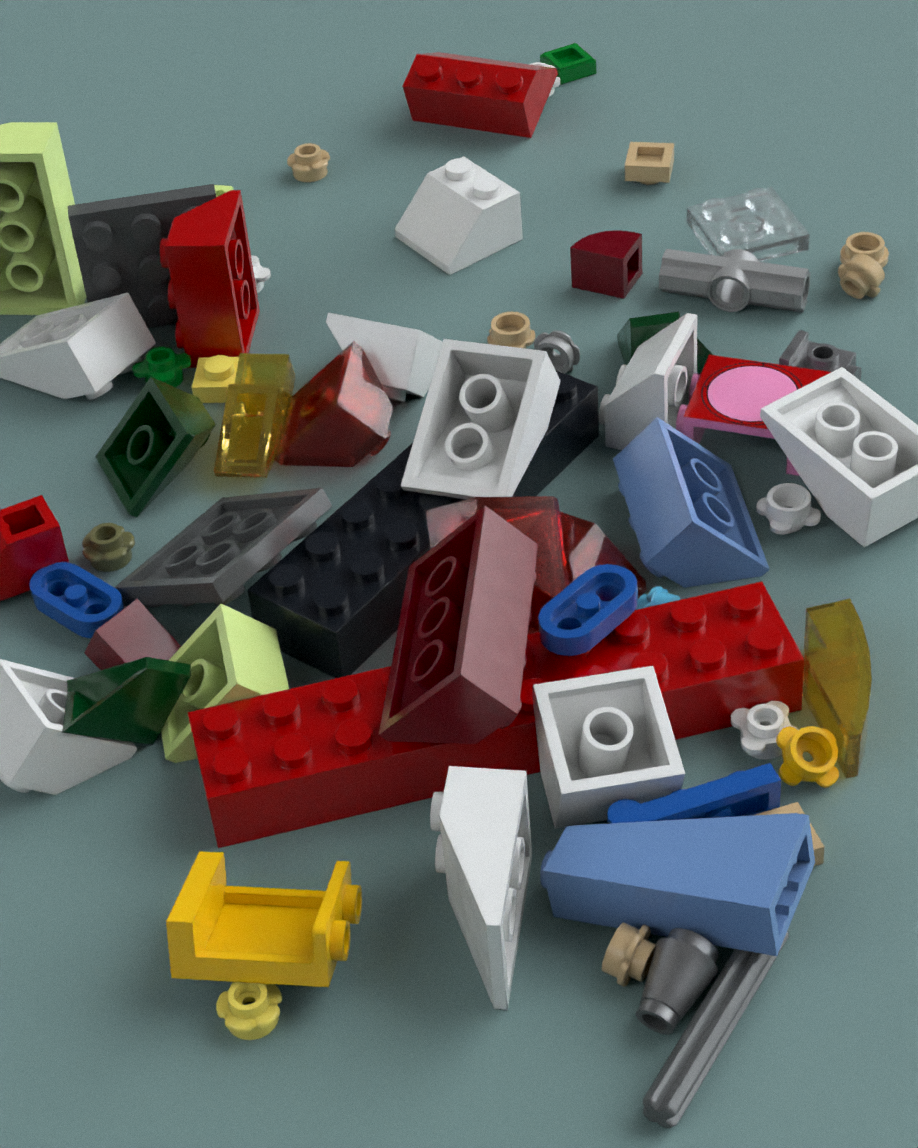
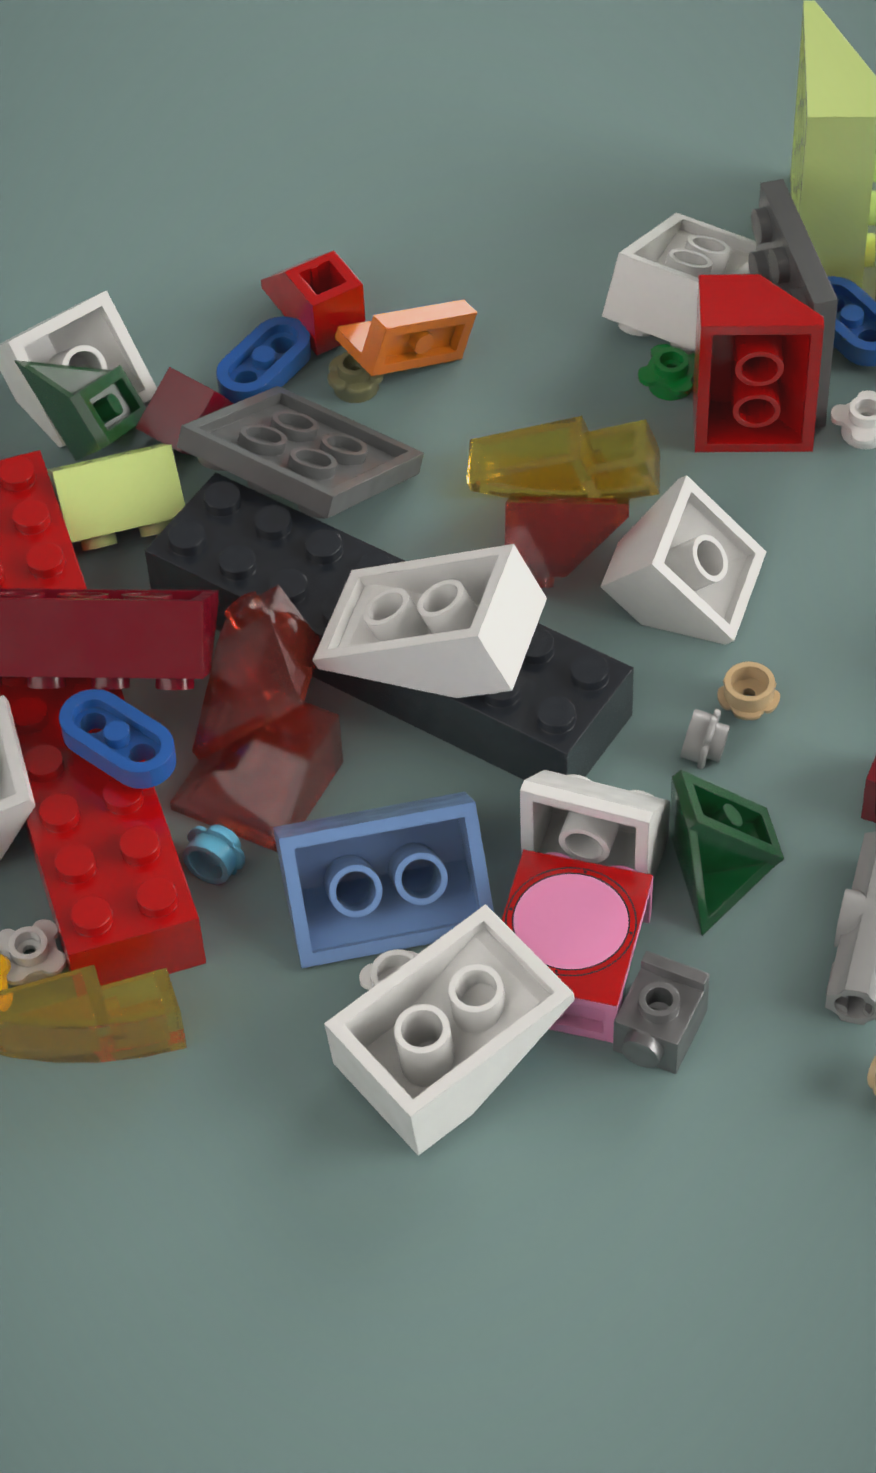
camera: 85 degrees right, 10 degrees up
(97, 499) = (409, 337): none -> orange panel
(153, 443) = (512, 386): dark green slope -> none
(213, 377) = (666, 422): light yellow plate -> none

